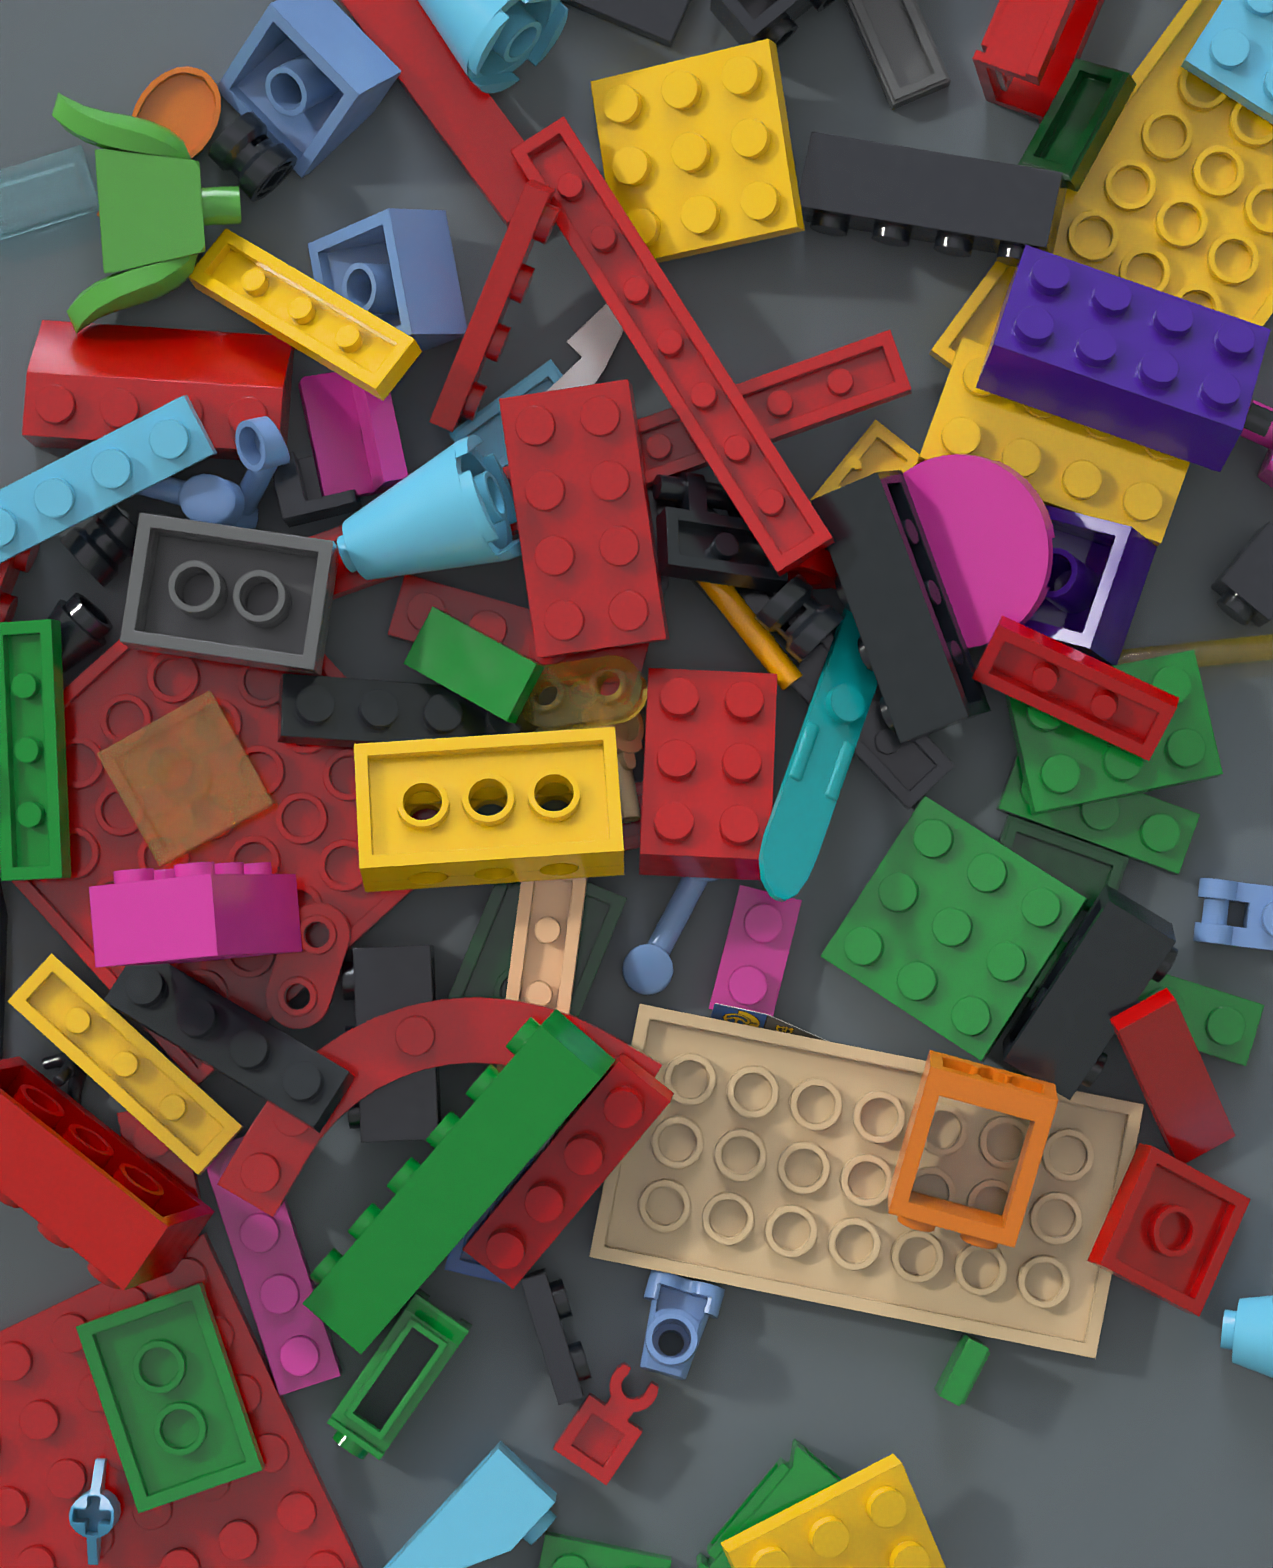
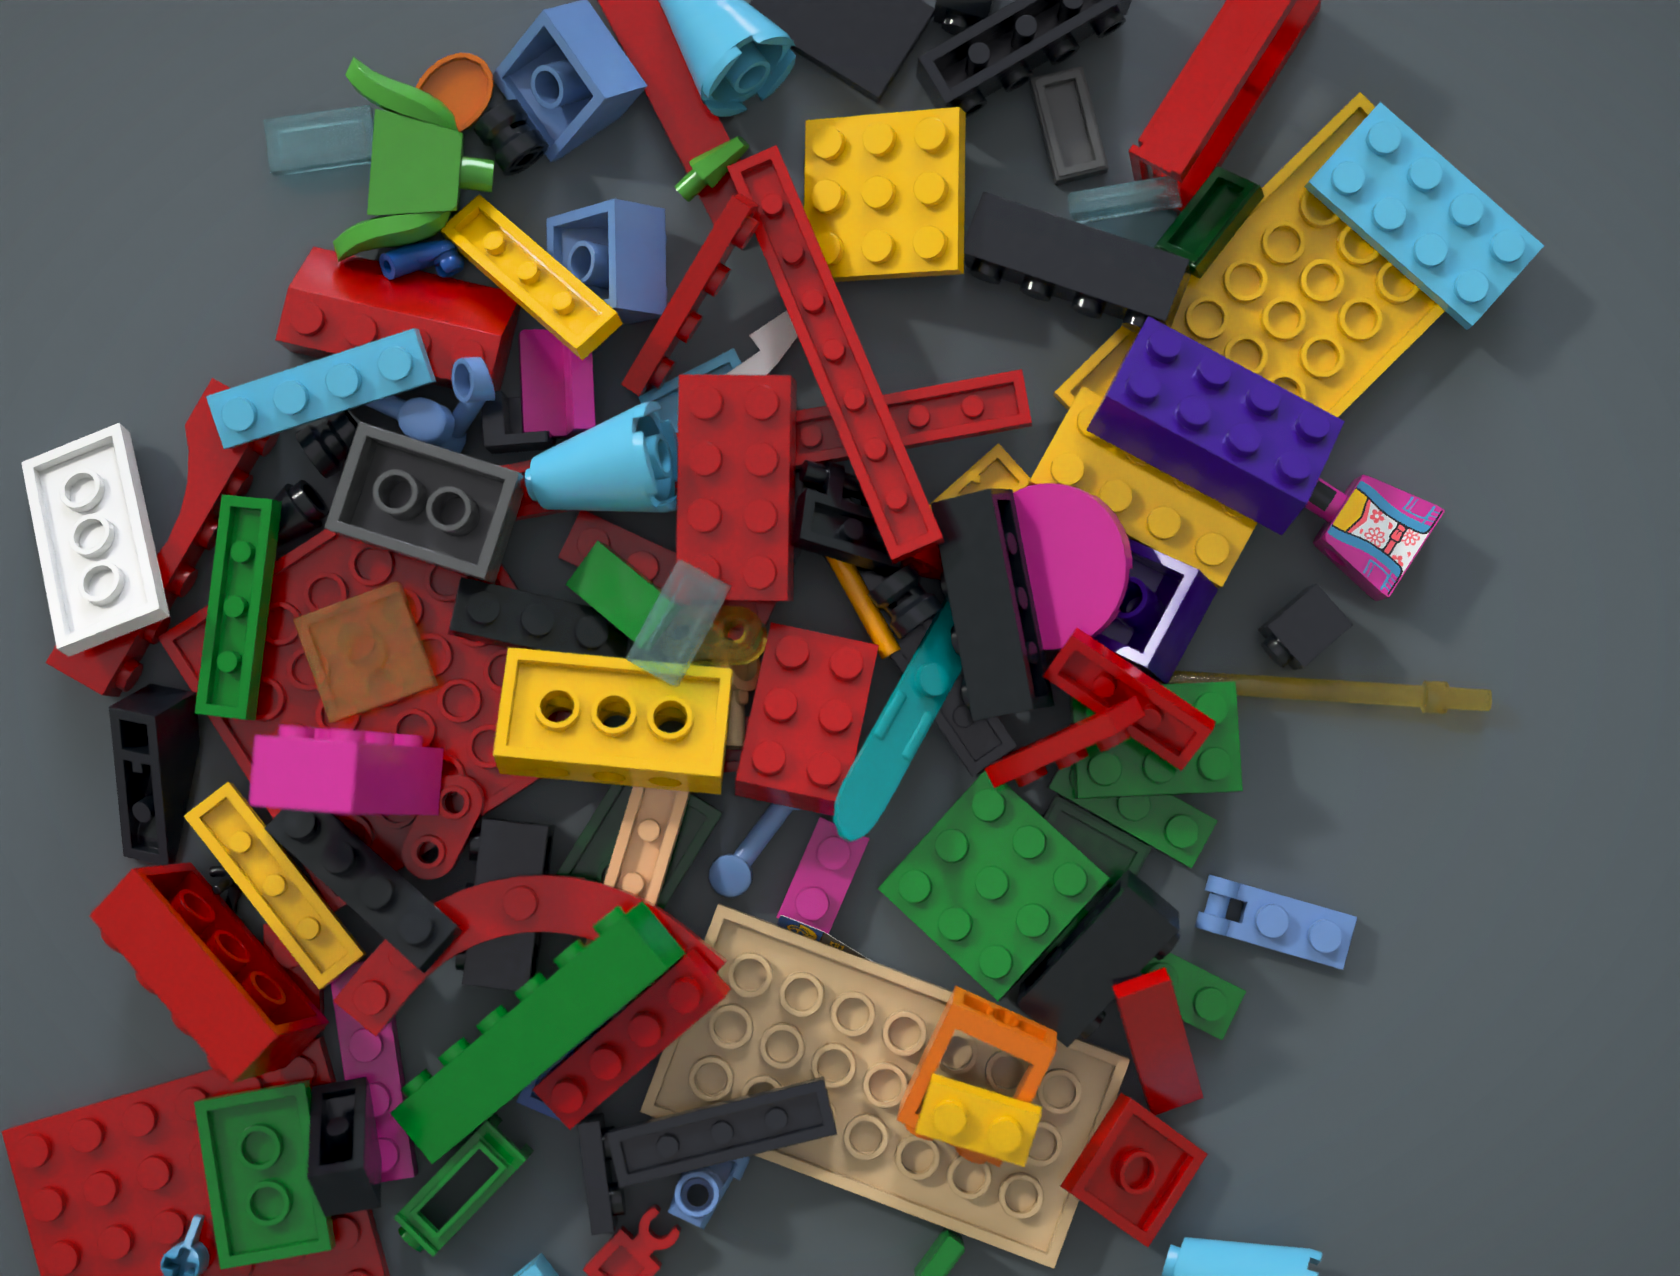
camera: 10 degrees right, 0 degrees up
(169, 311) = (421, 256): none -> blue arm
(257, 1351) = (344, 1148): none -> black slope
(491, 154) = (711, 167): none -> bright green bar
(546, 683) = (678, 622): none -> clear light blue tile
(688, 1262) = (721, 1132): none -> black plate
(975, 114) = (1124, 199): none -> clear light blue tile
(982, 1195) = (978, 1120): none -> yellow plate
(1012, 753) = (1067, 744): none -> red plate

